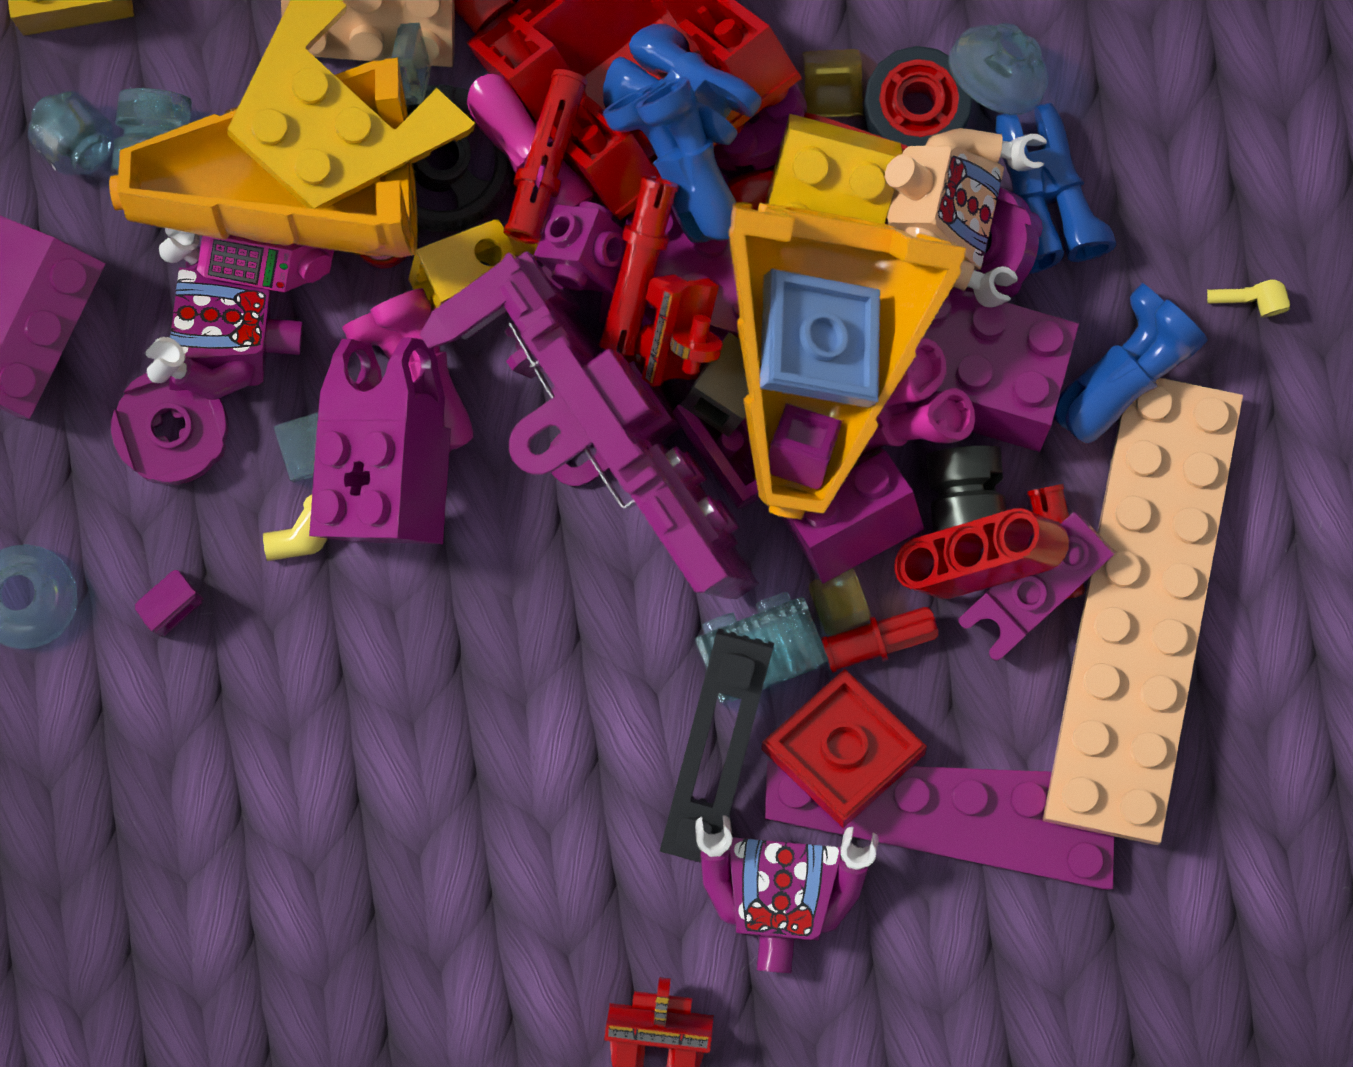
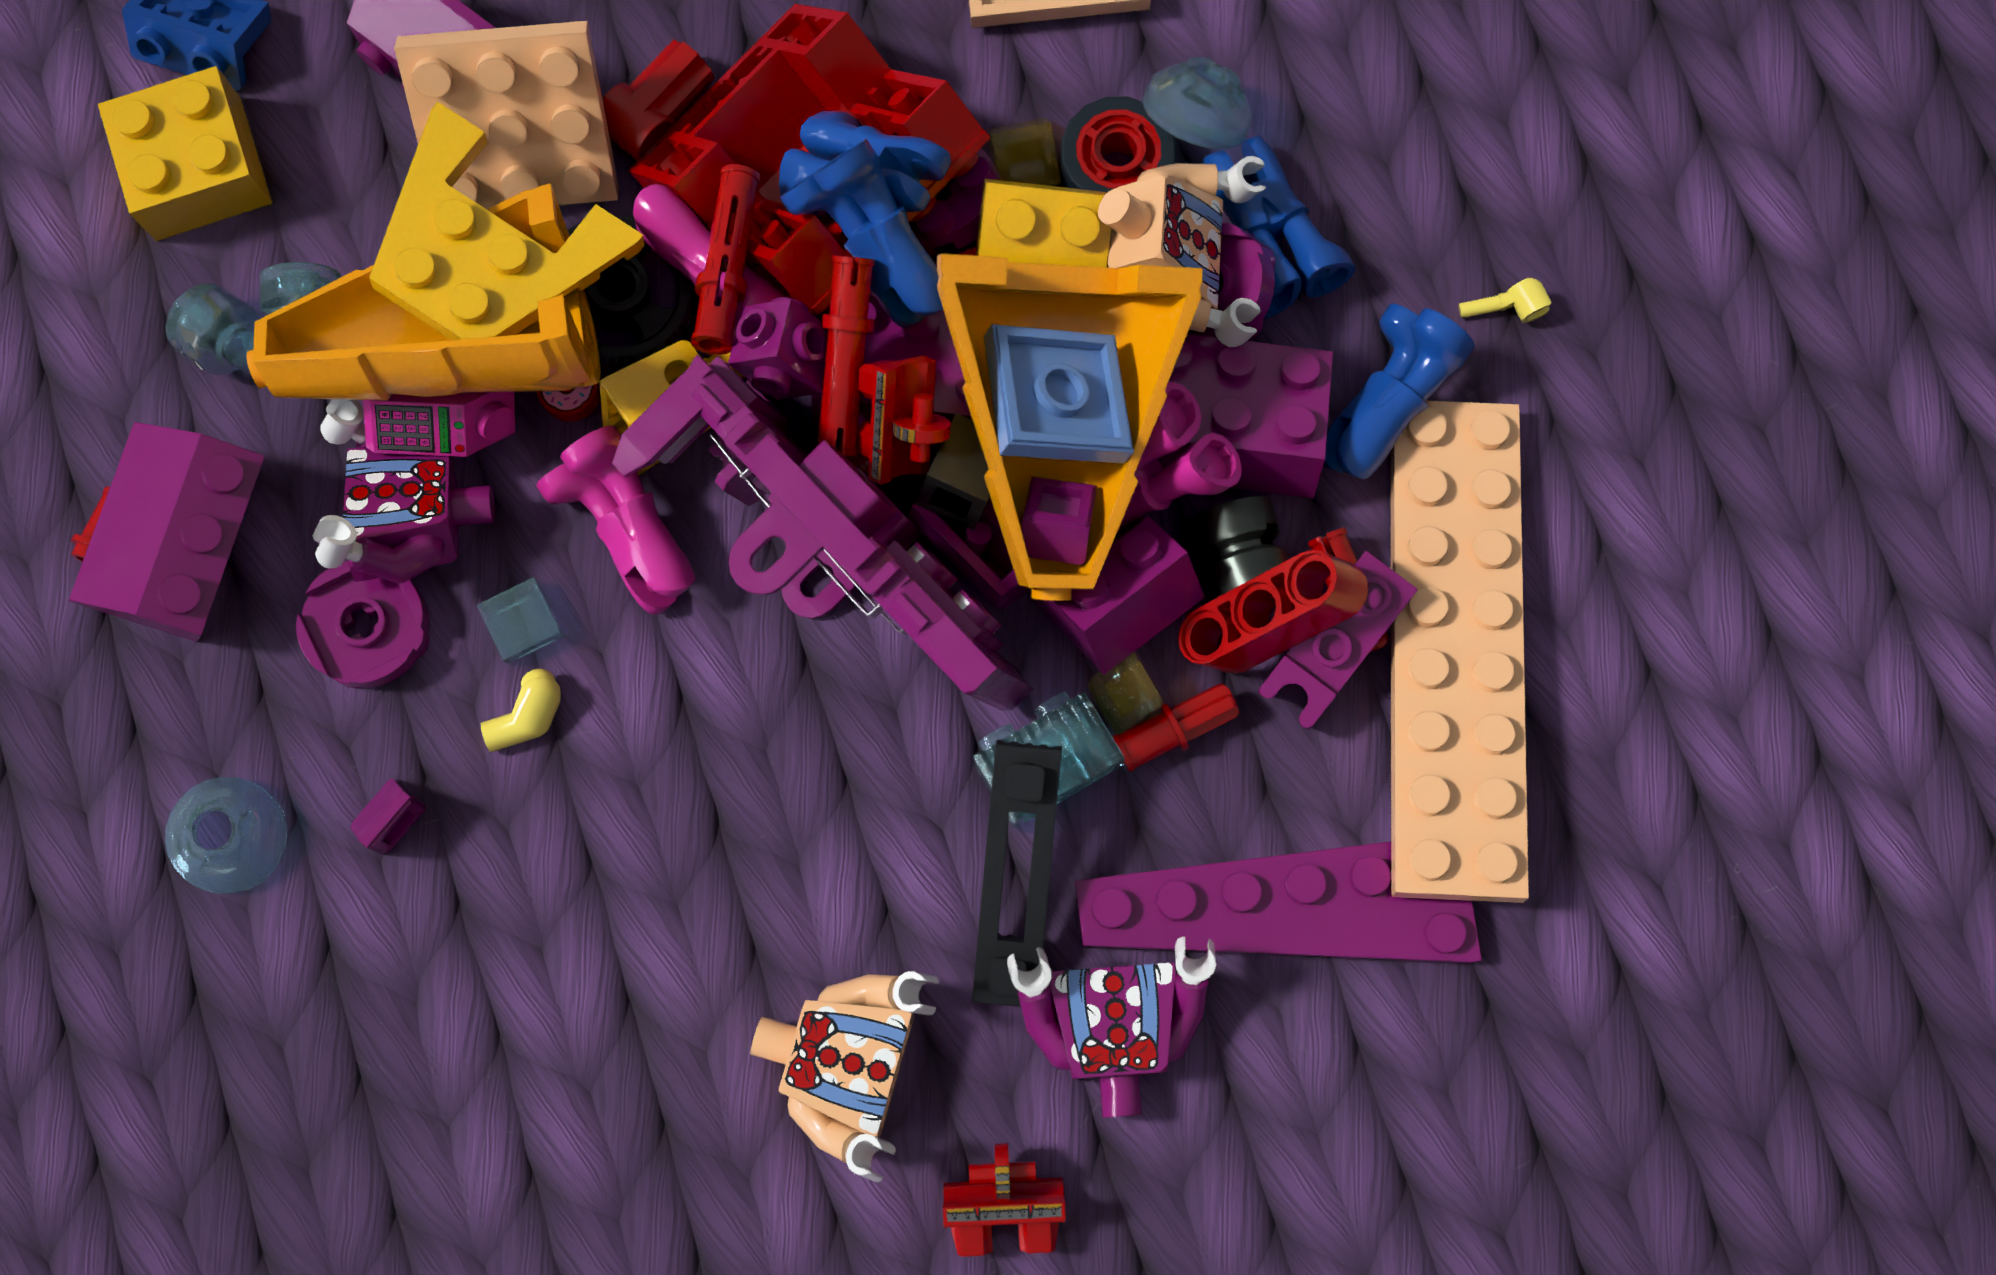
camera: 10 degrees left, 5 degrees down
(381, 449) = (594, 607): magenta brick -> none
(413, 61) = (569, 188): clear light blue tile -> none
(541, 885) = (846, 1061): none -> torso
(843, 748) = (1157, 852): red tile -> none

